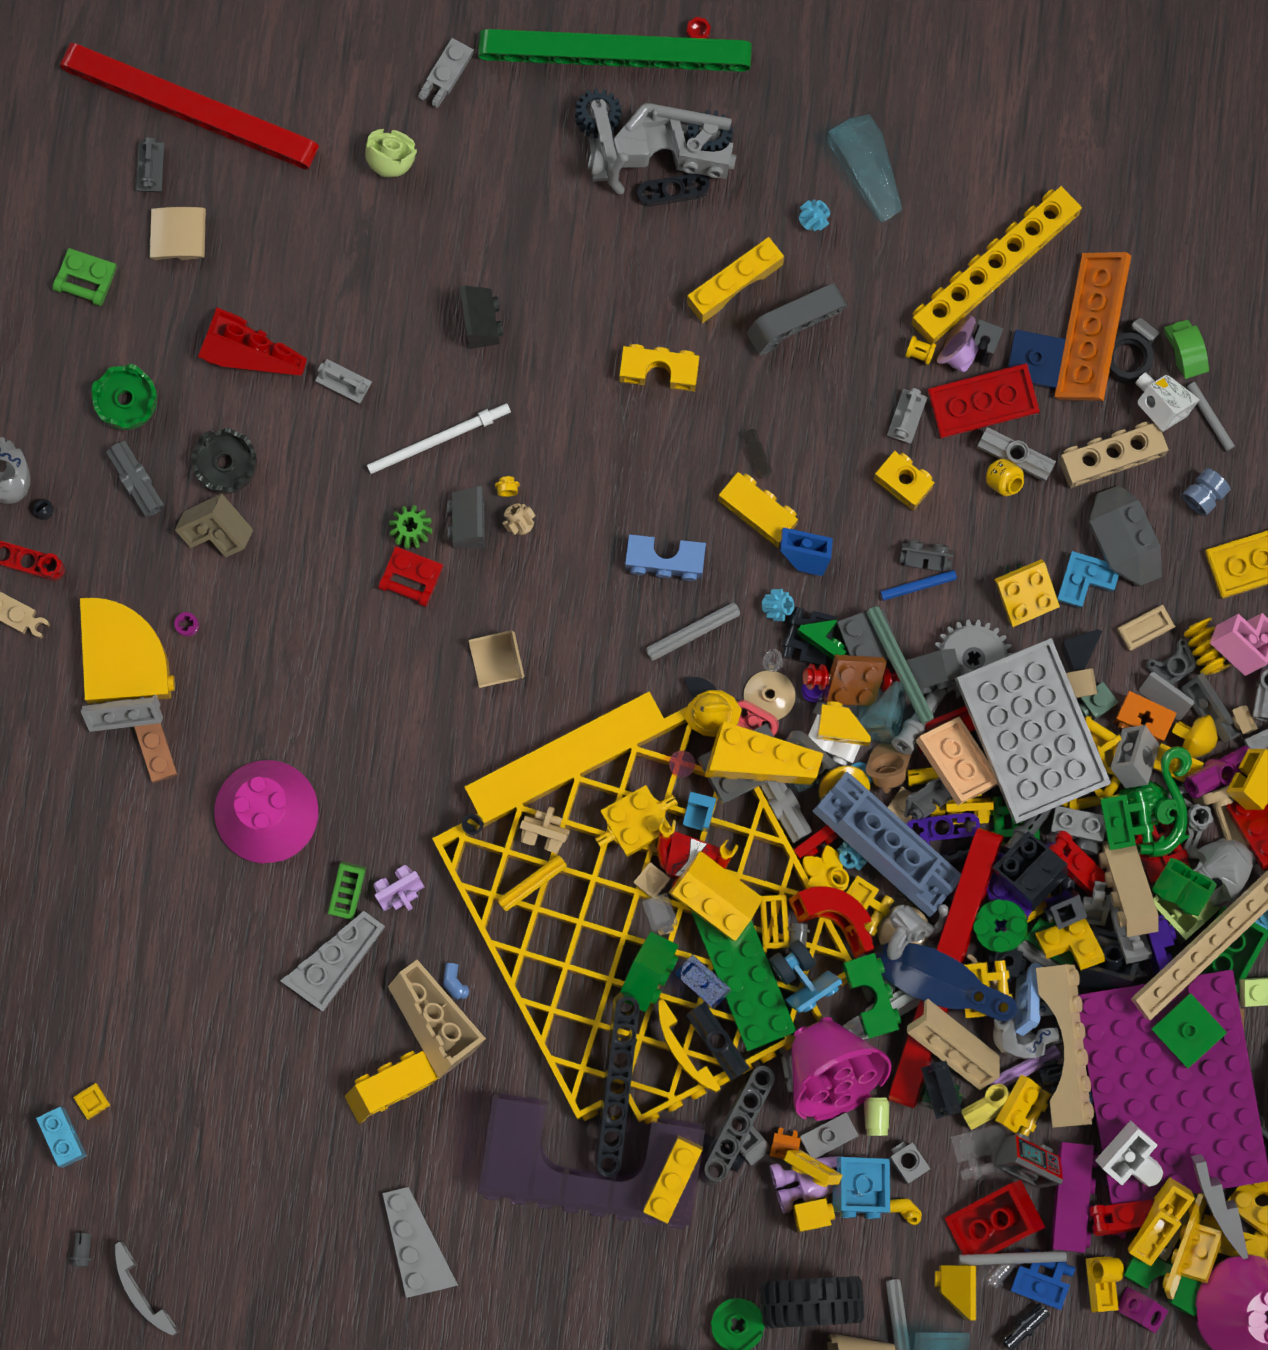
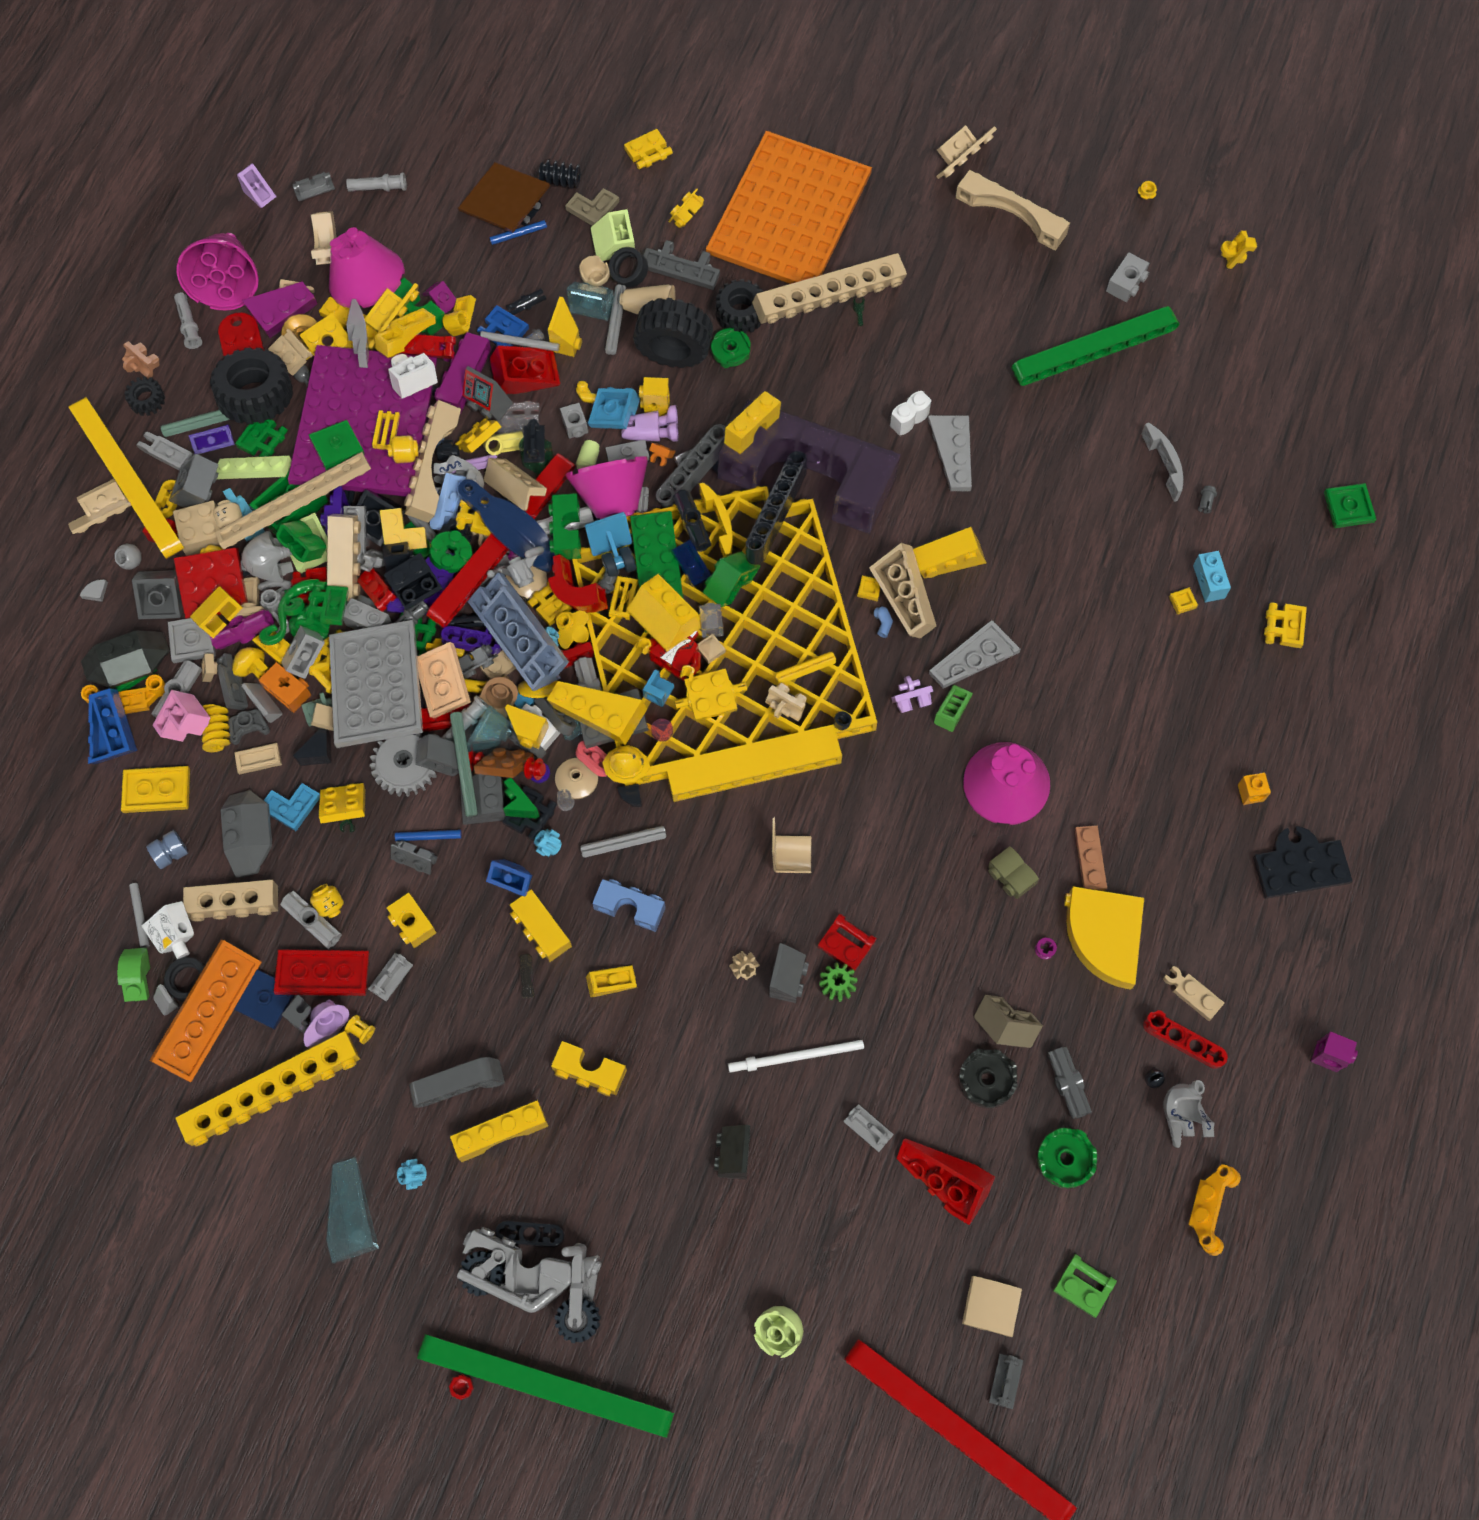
camera: 165 degrees left, 10 degrees down
(122, 714) = (1112, 880): light grey plate -> none
(238, 699) = (1013, 873): none -> olive brick
(447, 71) = (706, 1408): light grey hinge -> none
(483, 1021) = (869, 588): none -> yellow tile
(485, 1273) = (910, 413): none -> white brick
(507, 487) = (747, 998): yellow plate -> none
(662, 471) = (610, 980): none -> yellow slope
(806, 1164) = (645, 422): yellow plate -> none
(1102, 1042) = (403, 449): none -> yellow head
(1131, 1047) = (387, 416): none -> yellow tile

